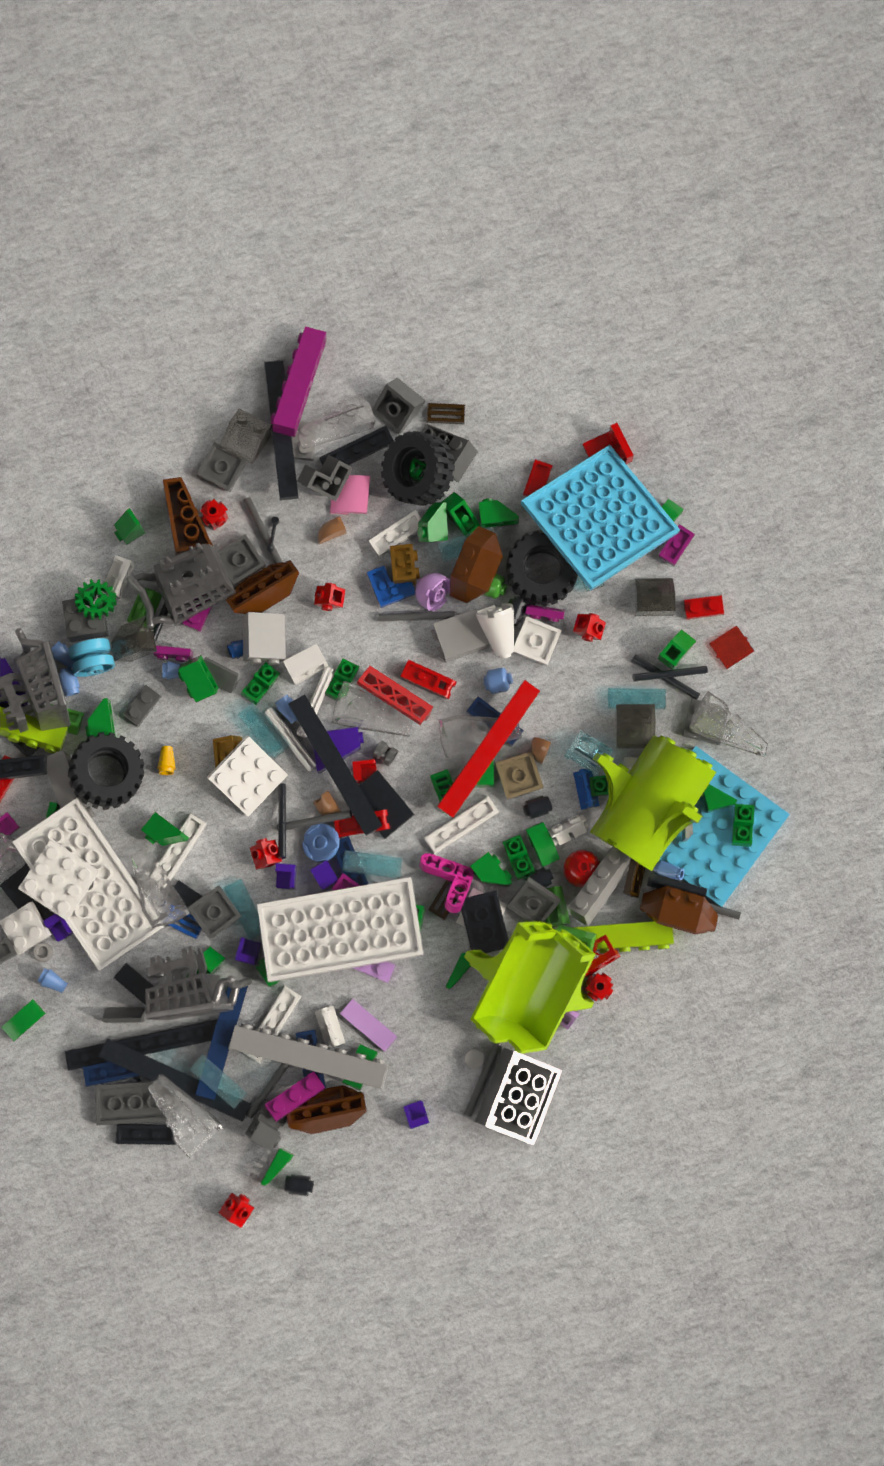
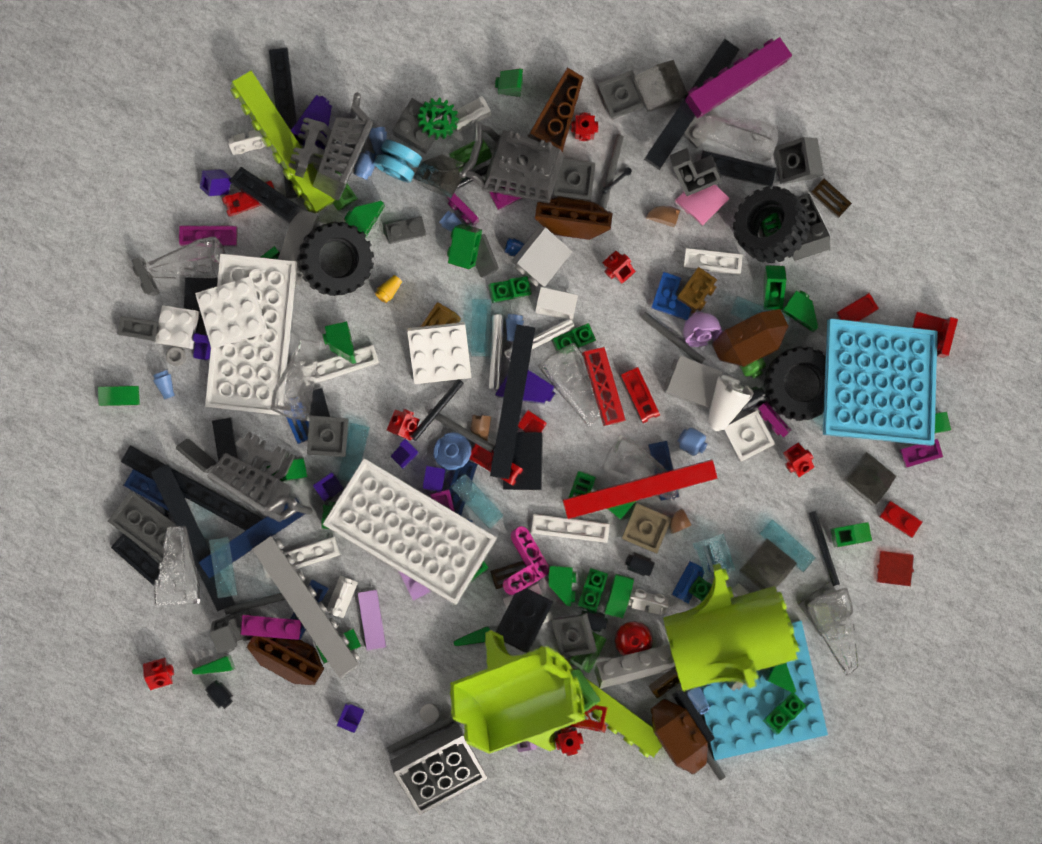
camera: 35 degrees right, 5 degrees up
(385, 753) = (555, 421): dark grey wheel -> none
(433, 524) = (746, 278): slope -> none
(670, 673) = (829, 548): black bar -> none

